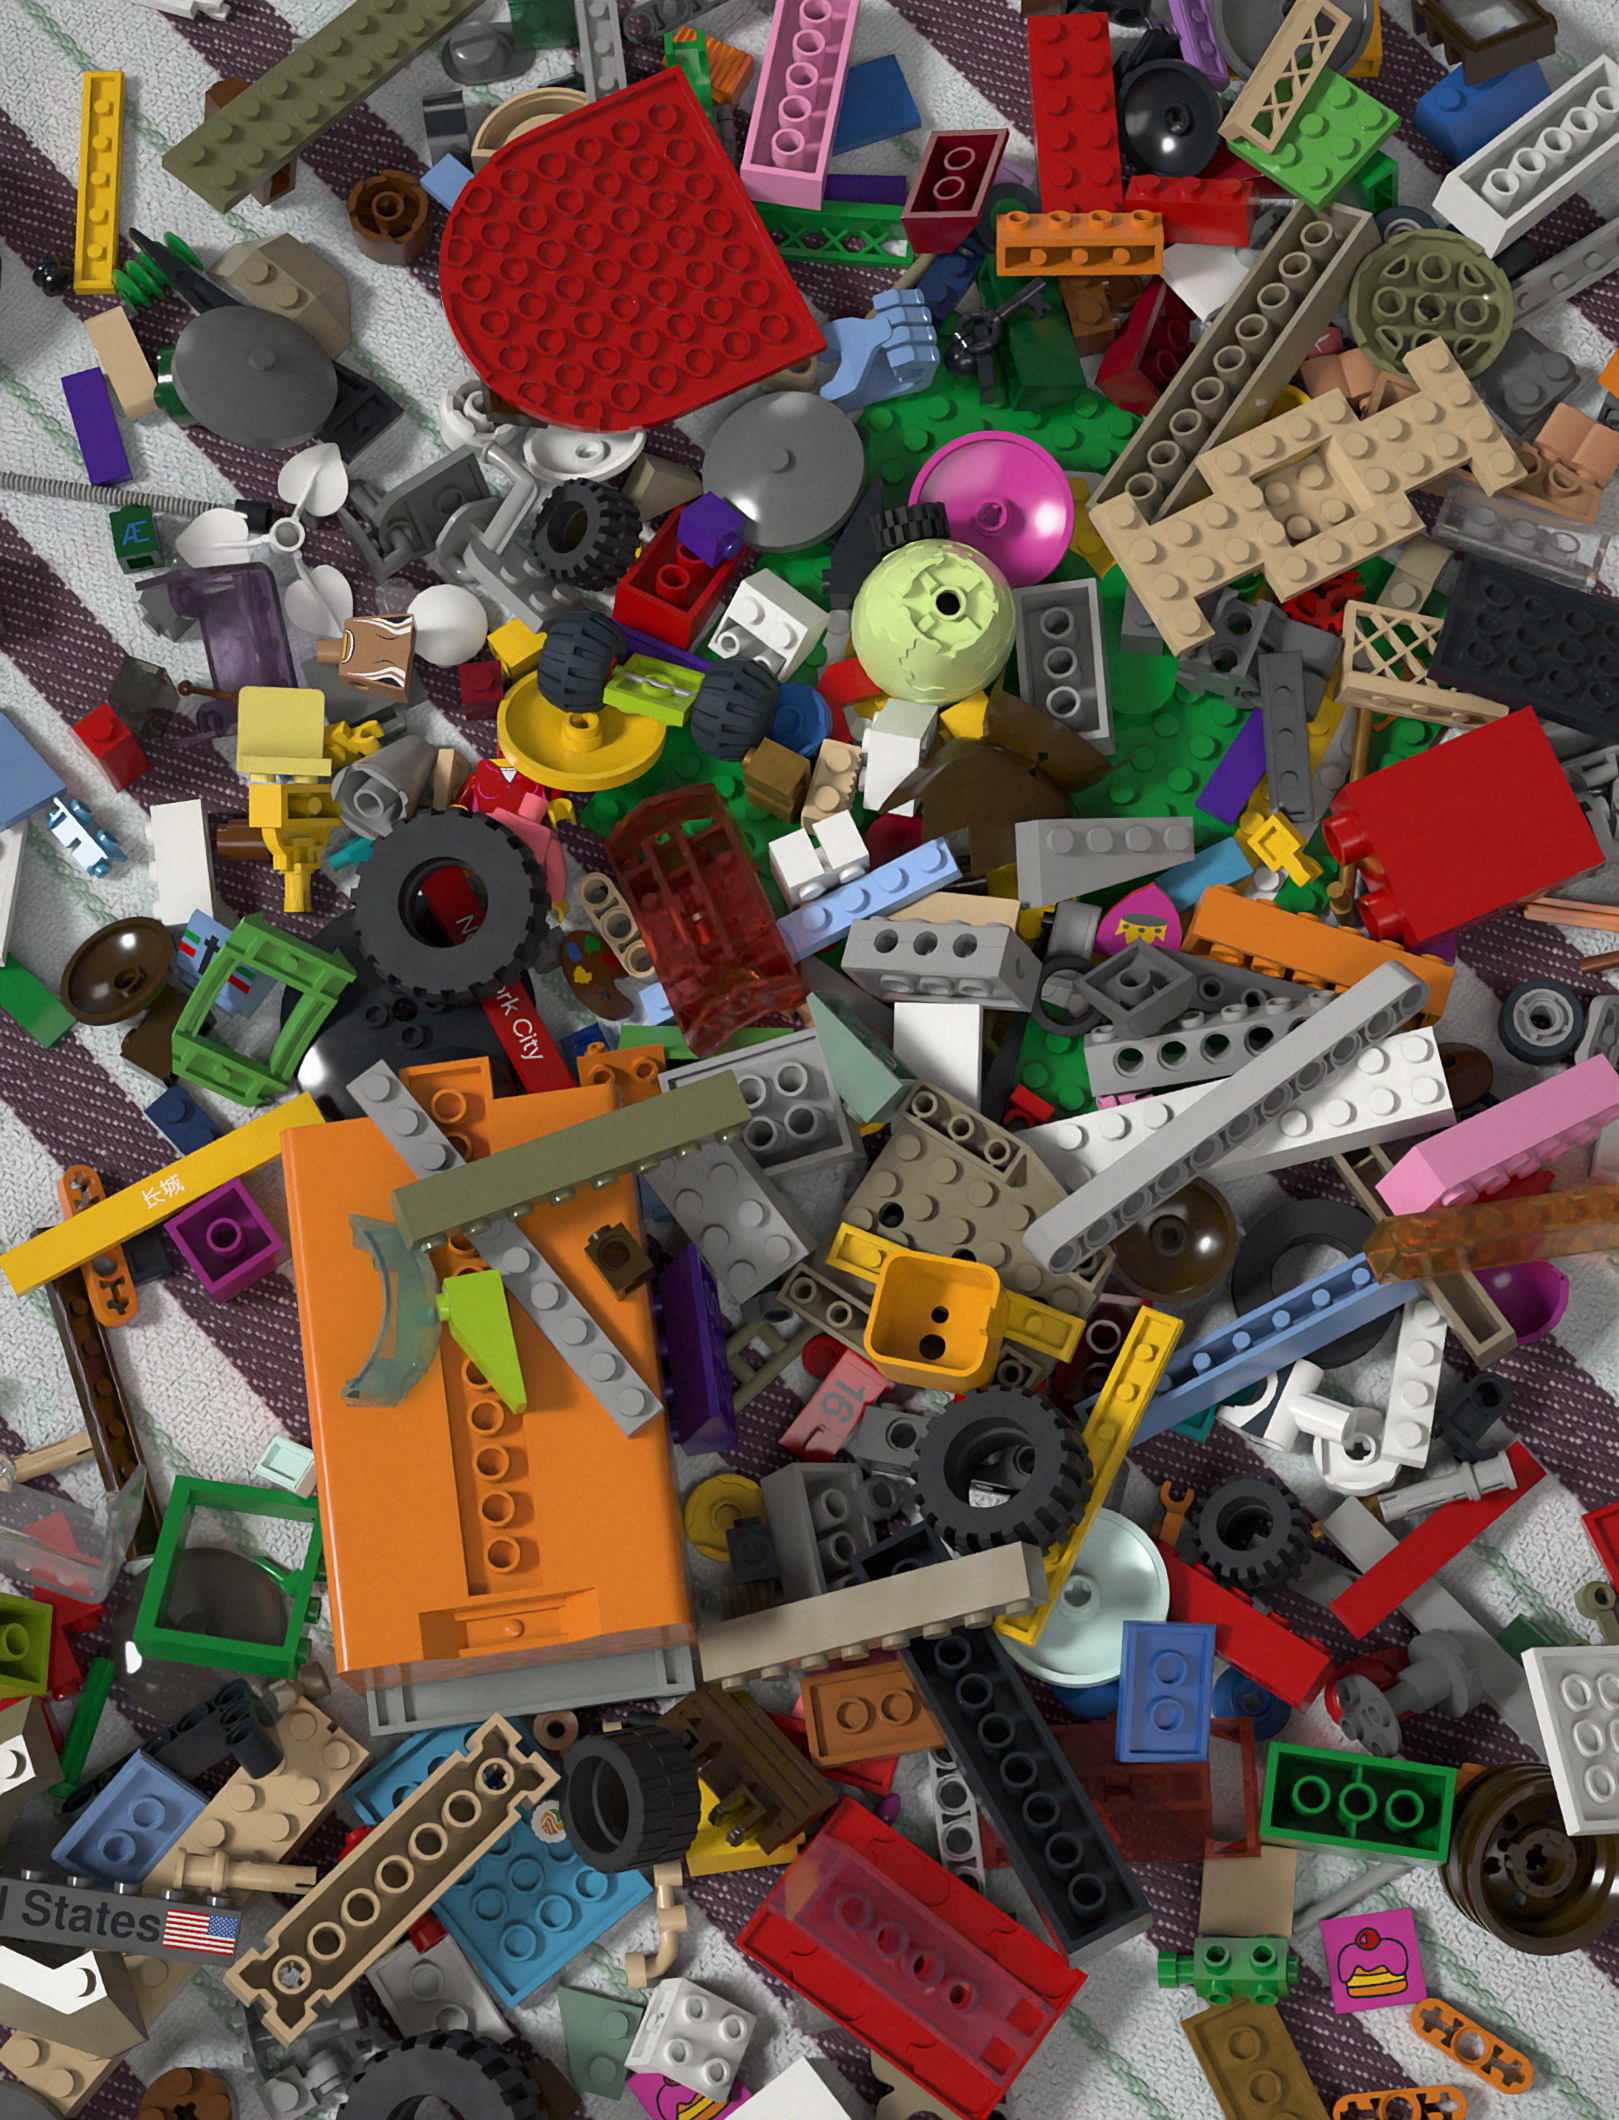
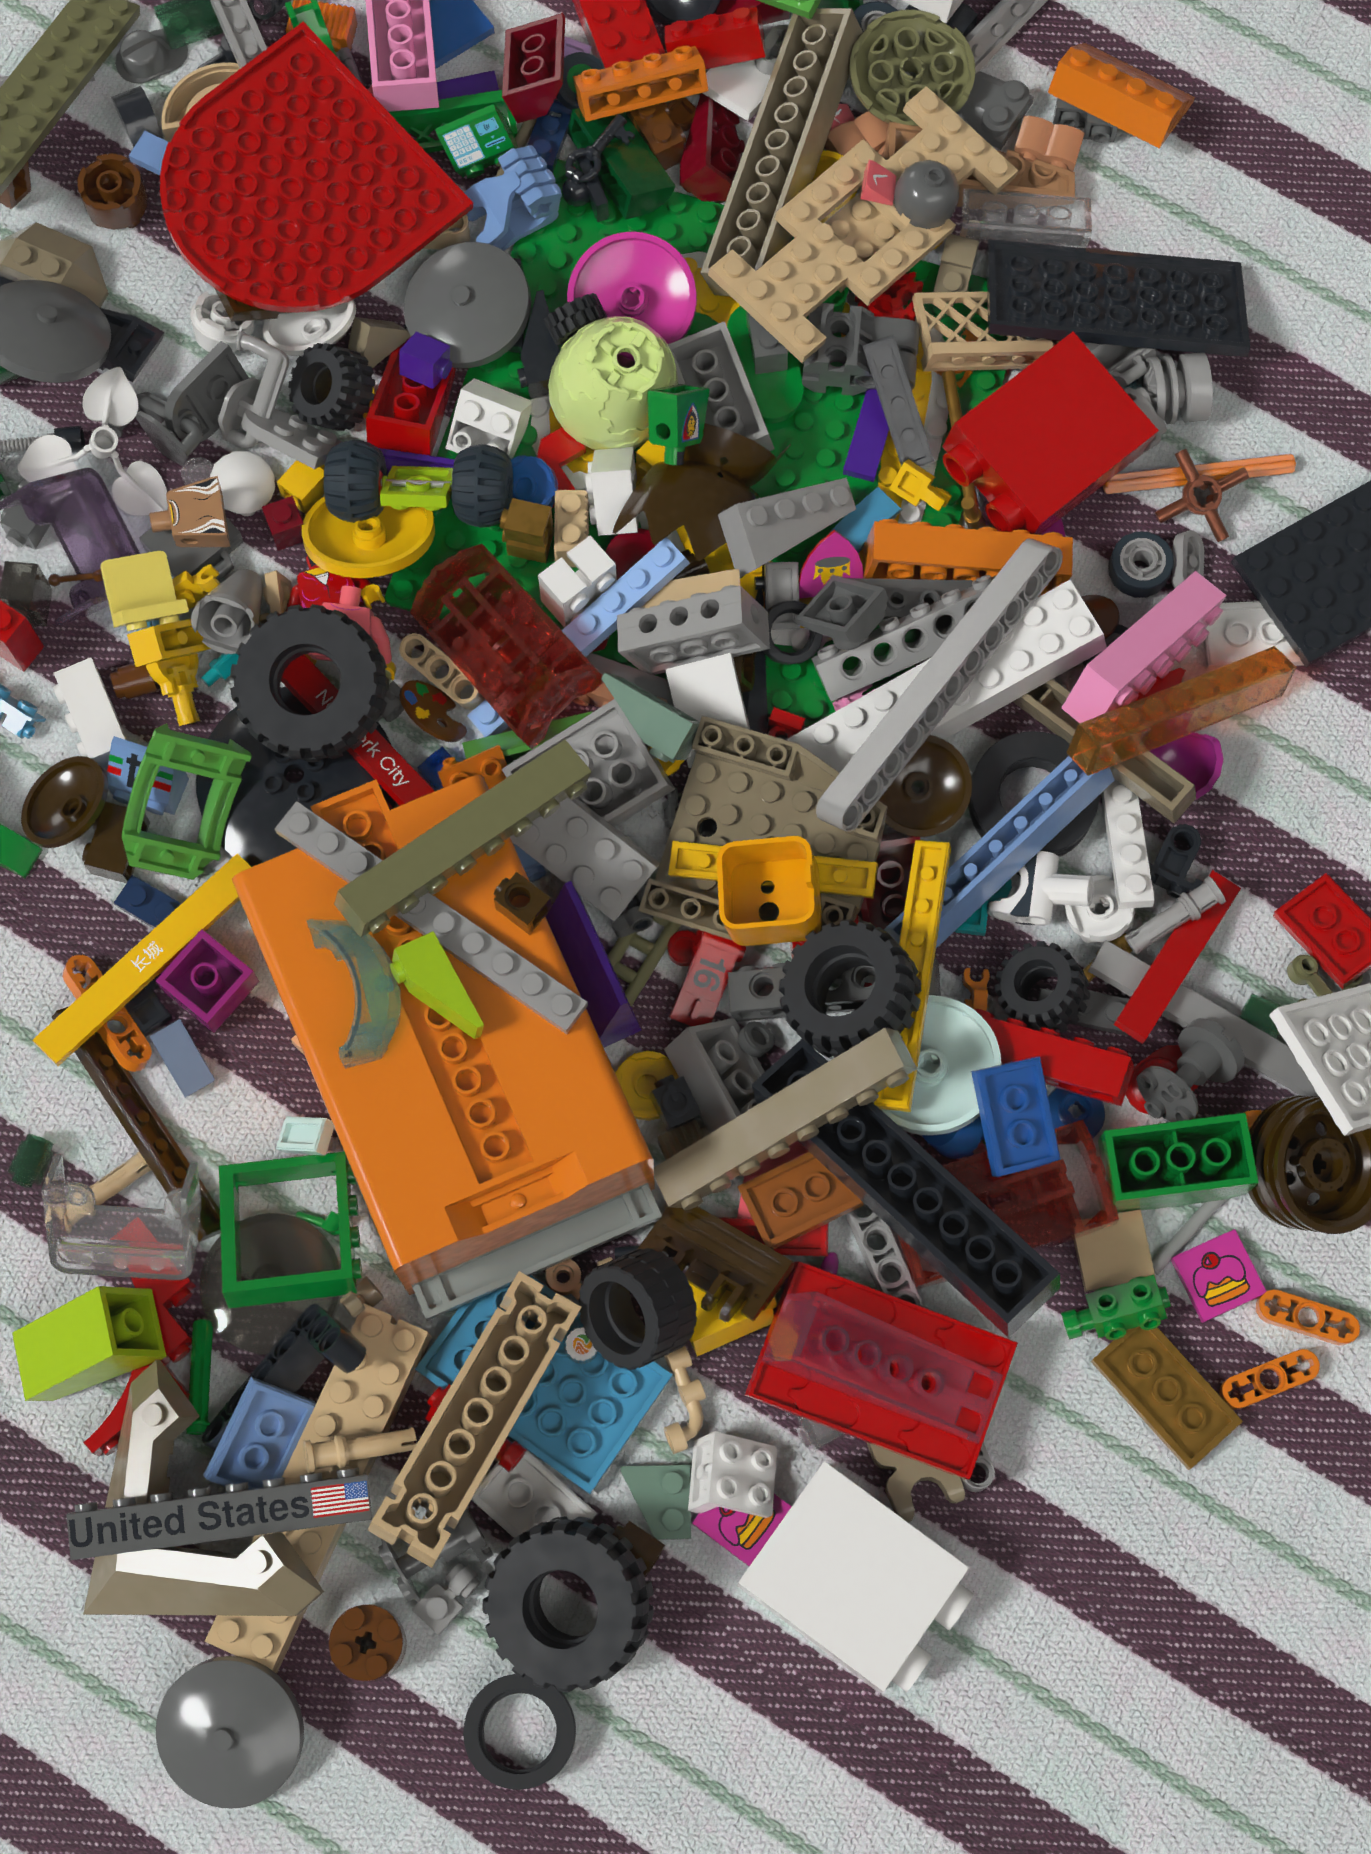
camera: 20 degrees left, 0 degrees up
(172, 1327) = (182, 1058): none -> sand blue slope
(856, 266) = (477, 140): none -> green slope
(994, 691) = (677, 419): none -> green torso
(1338, 452) = (878, 184): none -> coral slope
(1396, 480) = (926, 194): none -> dark grey cylinder

